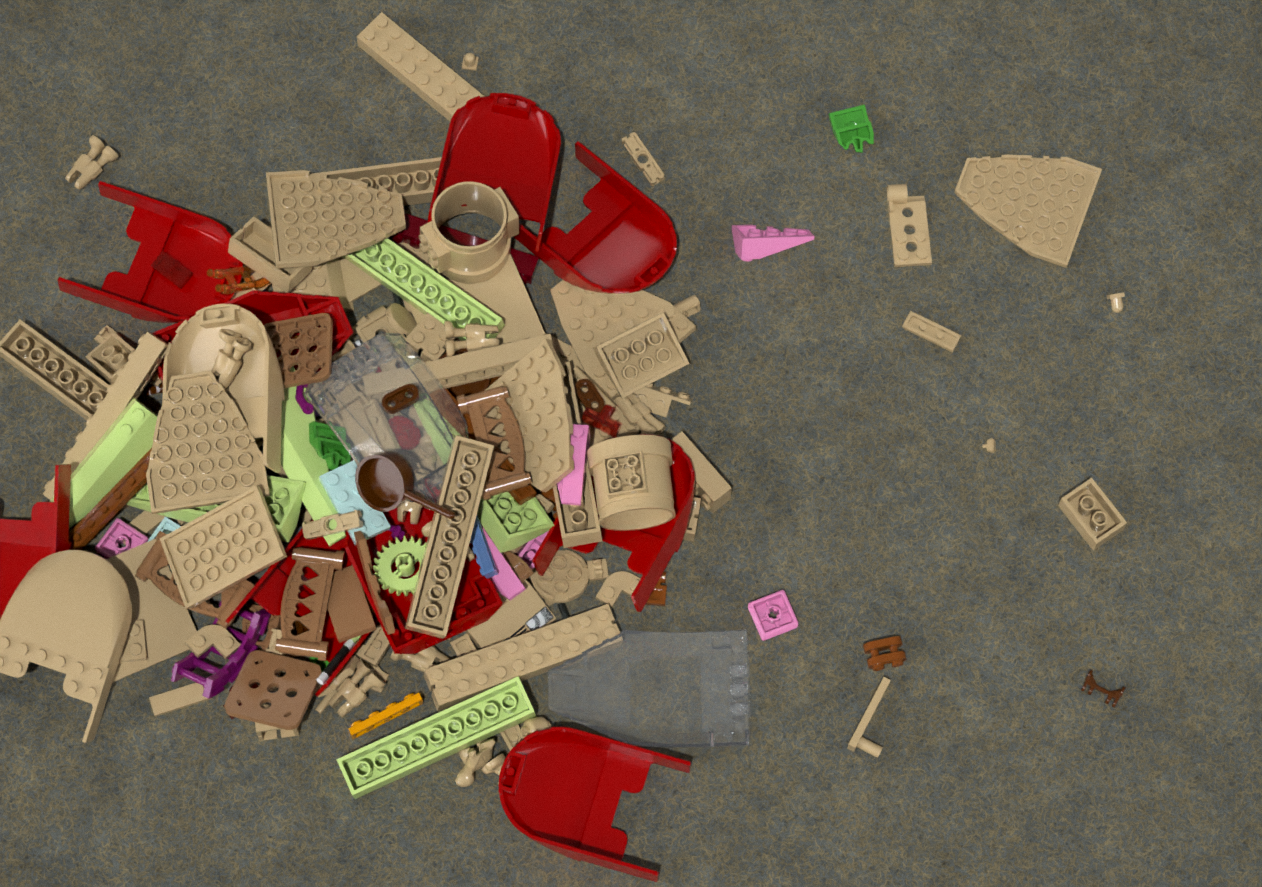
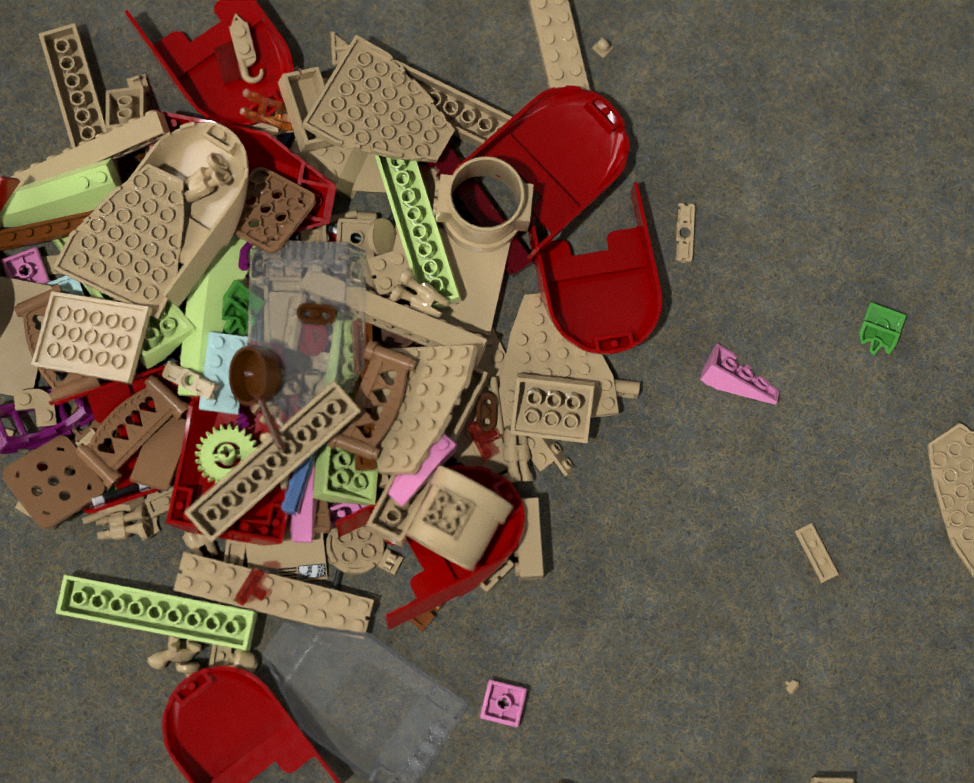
camera: 35 degrees right, 10 degrees up
(177, 249) = (244, 48): none -> tan plate
(257, 202) = (338, 48): none -> tan tile
(373, 584) = (176, 493): medium nougat tile -> none
(391, 712) = (141, 563): light orange plate -> none
(502, 658) = (251, 588): none -> clear red tile
(615, 584) = (394, 585): tan plate -> none
(898, 202) = (871, 420): tan hinge -> none

